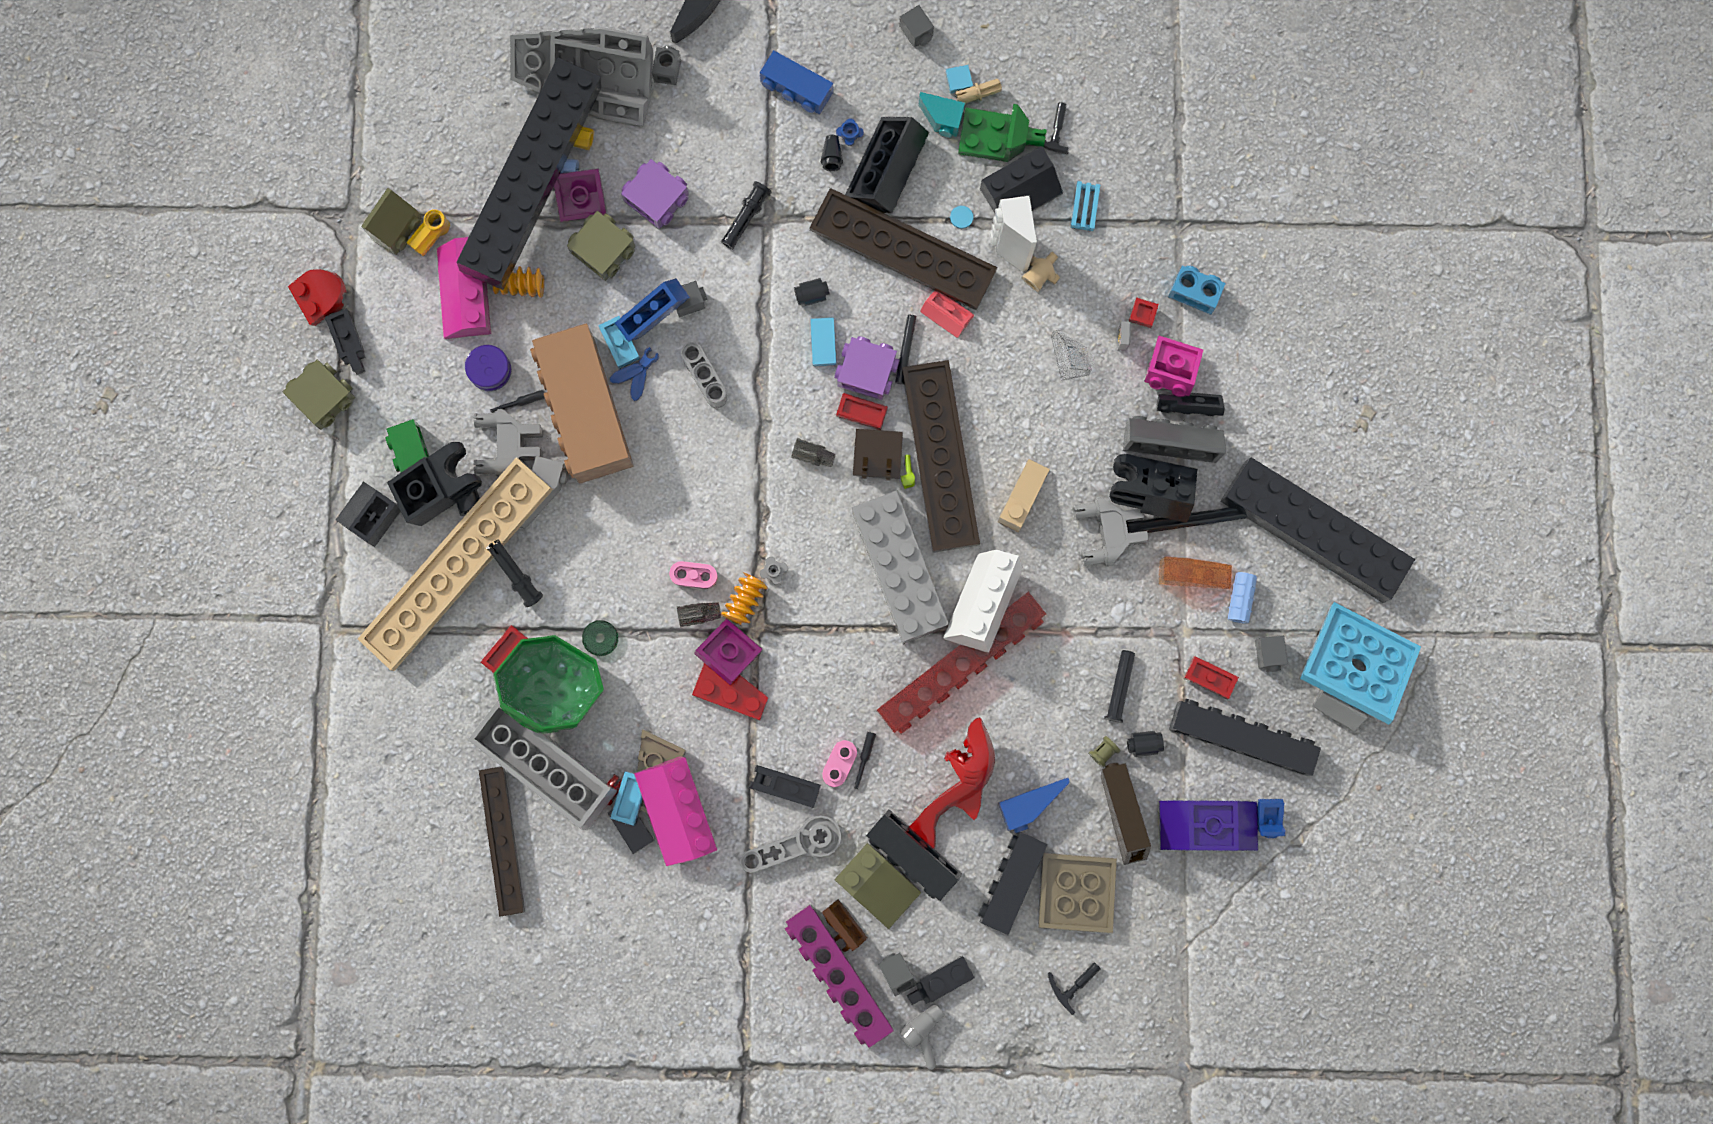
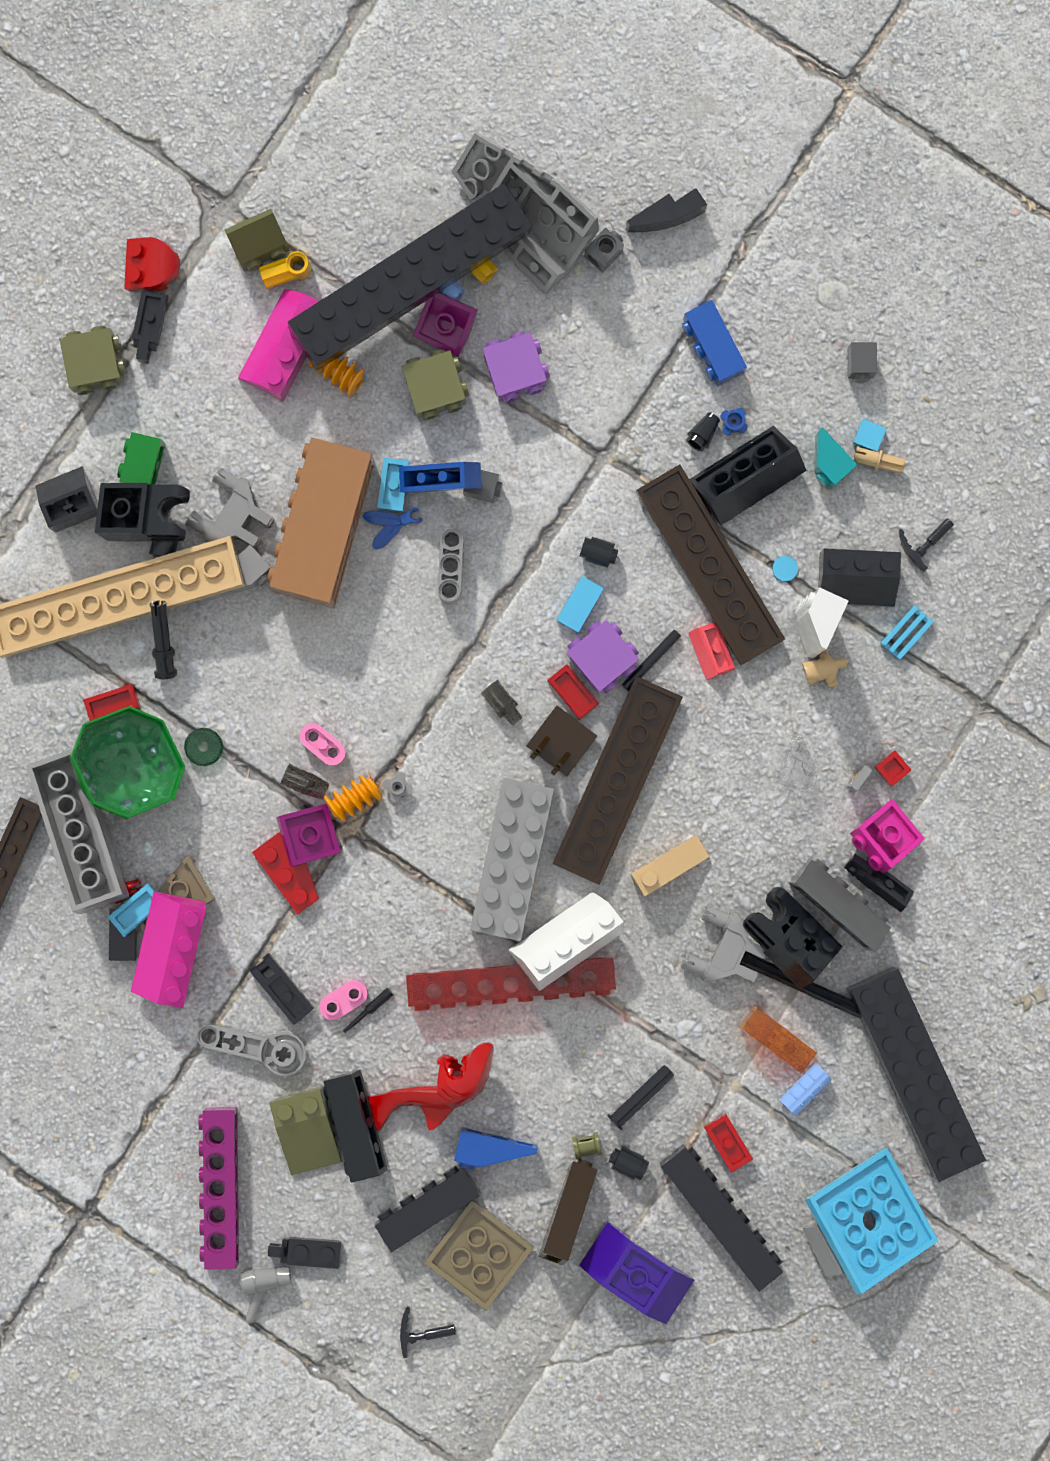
camera: 35 degrees right, 5 degrees up
(488, 367) = (259, 432): dark purple head -> none
(523, 400) = (272, 482): black piece -> none
(751, 206) = (596, 434): black pin -> none
(845, 925) = (254, 1147): reddish brown plate -> none
(897, 973) = (272, 1220): dark grey brick -> none
(909, 479) = (574, 783): lime hand -> none
(998, 134) = (869, 512): green plate -> none
(1194, 295) = (951, 782): dark azure brick -> none
(1270, 817) = (696, 1303): blue bracket -> none
(1271, 653) = (797, 1157): dark grey brick -> none

